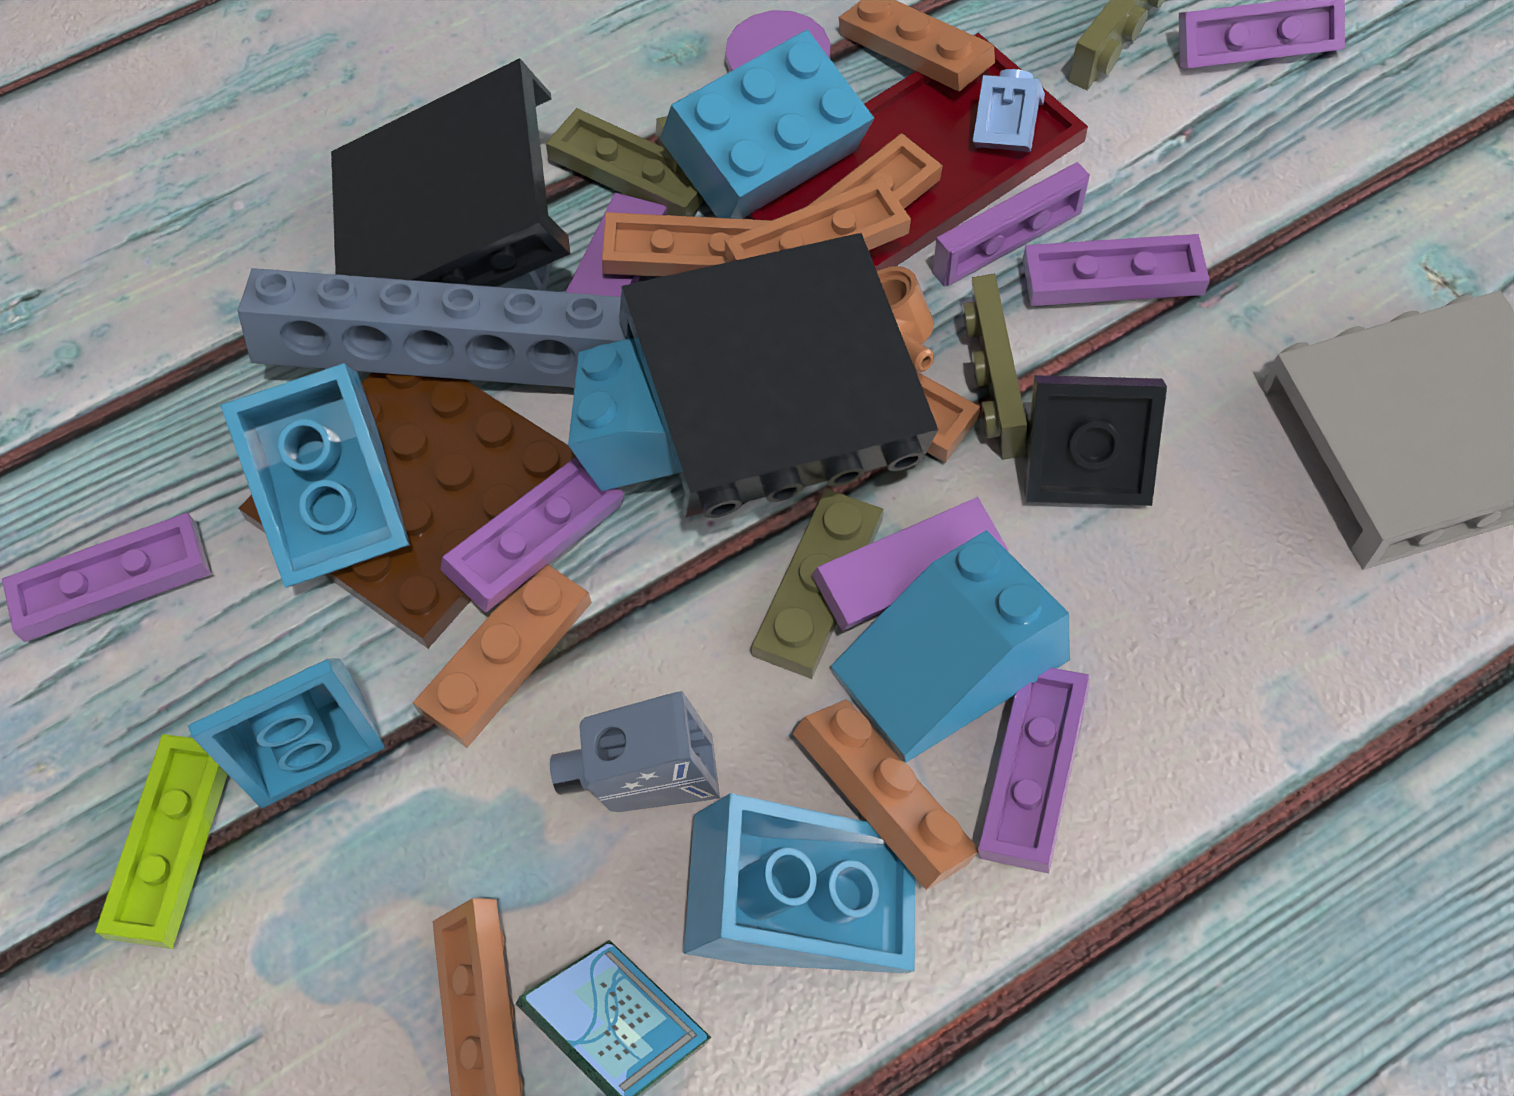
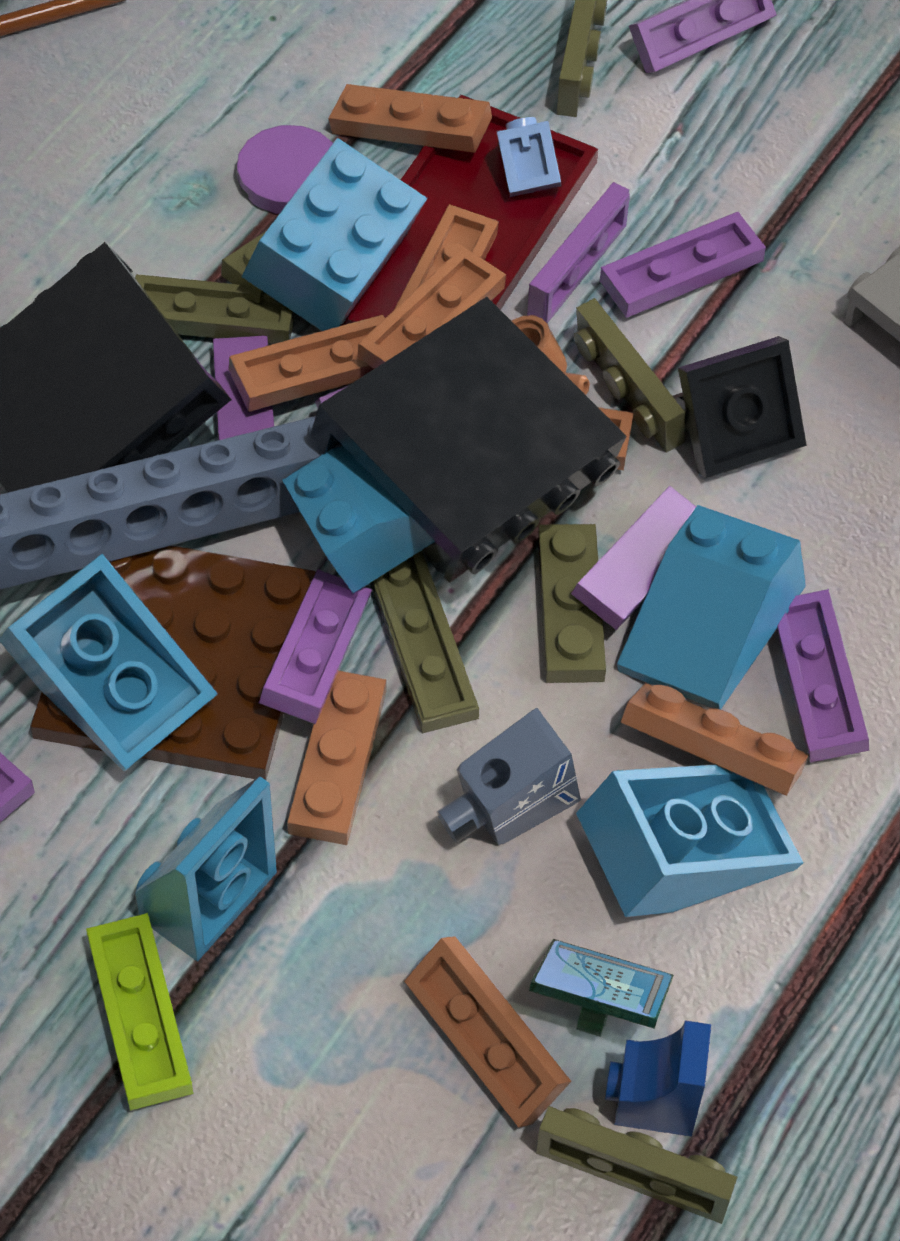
camera: 30 degrees left, 5 degrees down
(647, 574) = (424, 646): none -> olive tile

